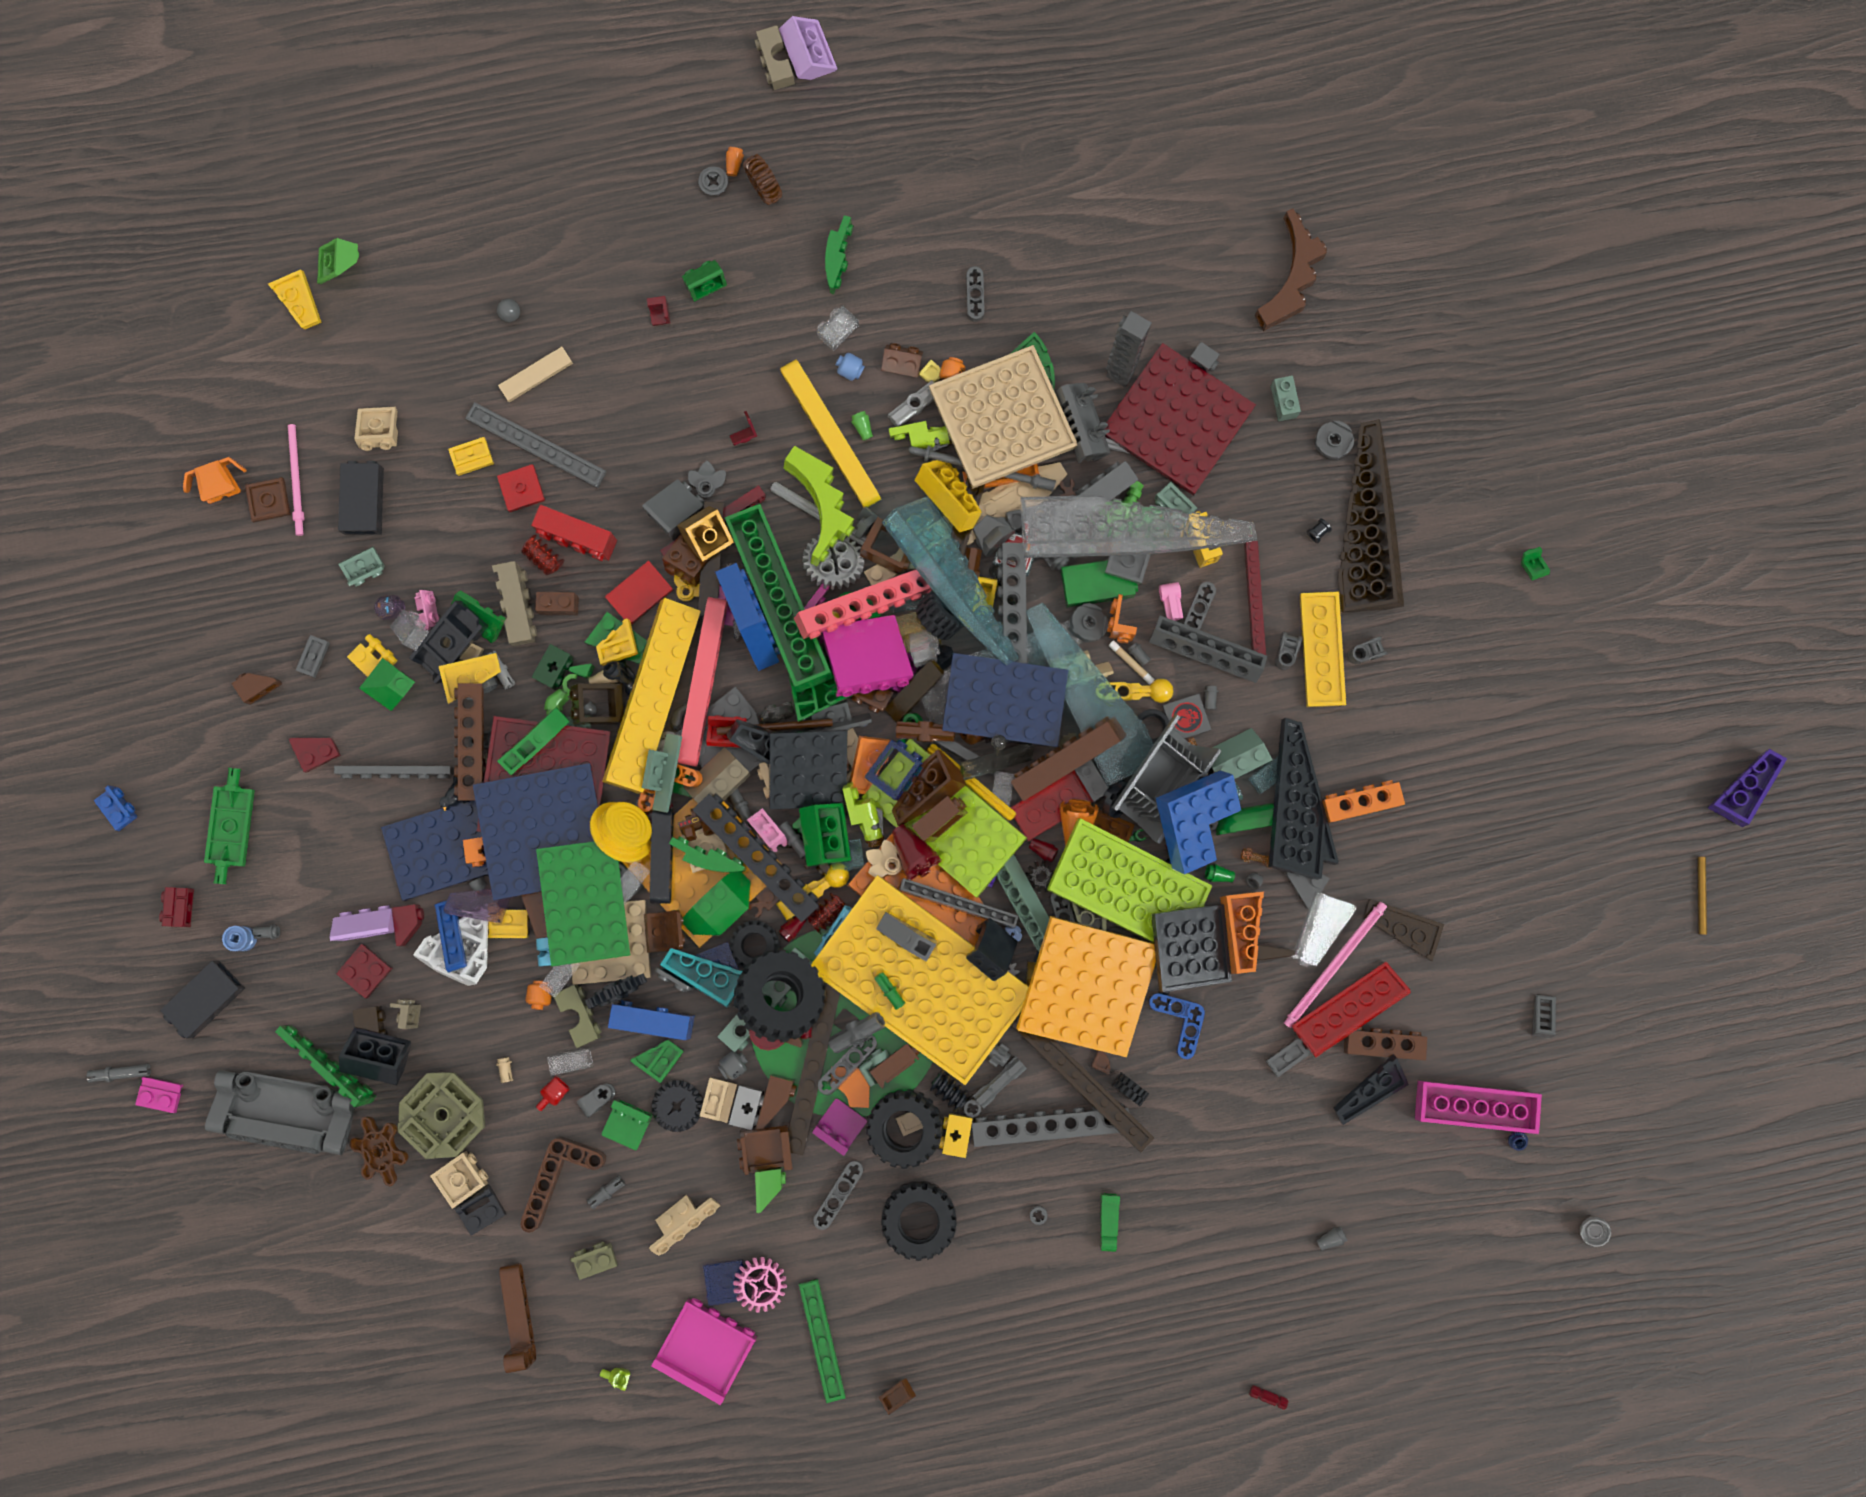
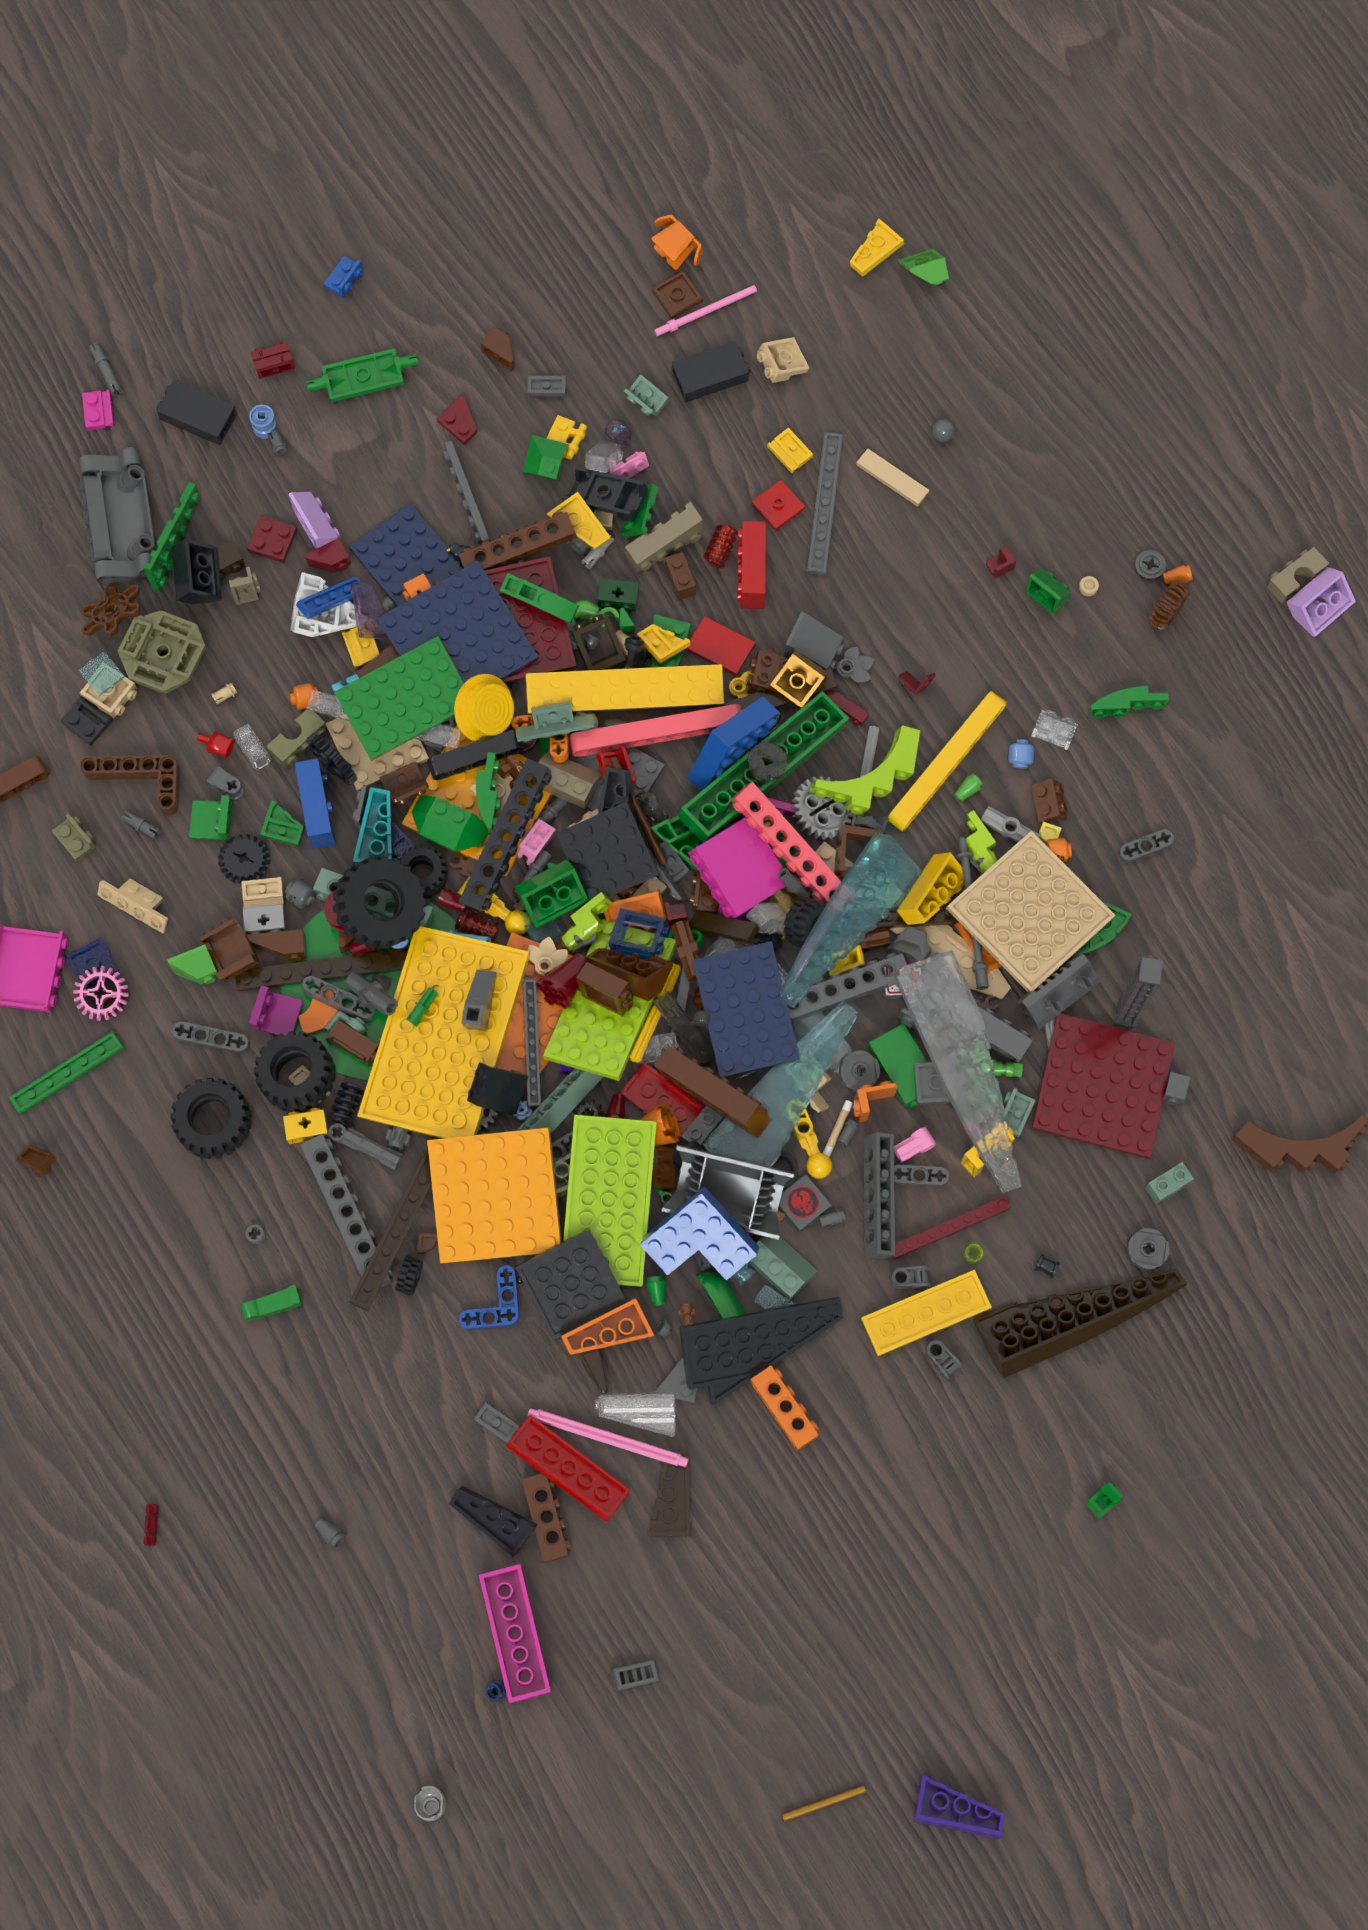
camera: 70 degrees right, 10 degrees down
(441, 1181) = (101, 673): none -> clear light blue piece
(711, 243) = (1088, 586): none -> tan tile
(777, 602) = (767, 751): none -> clear smoke plate
(881, 729) = (675, 913): none -> dark red panel
(899, 614) = (793, 884): none -> dark grey pin
(1280, 593) = (975, 1247): none -> clear neon green bush

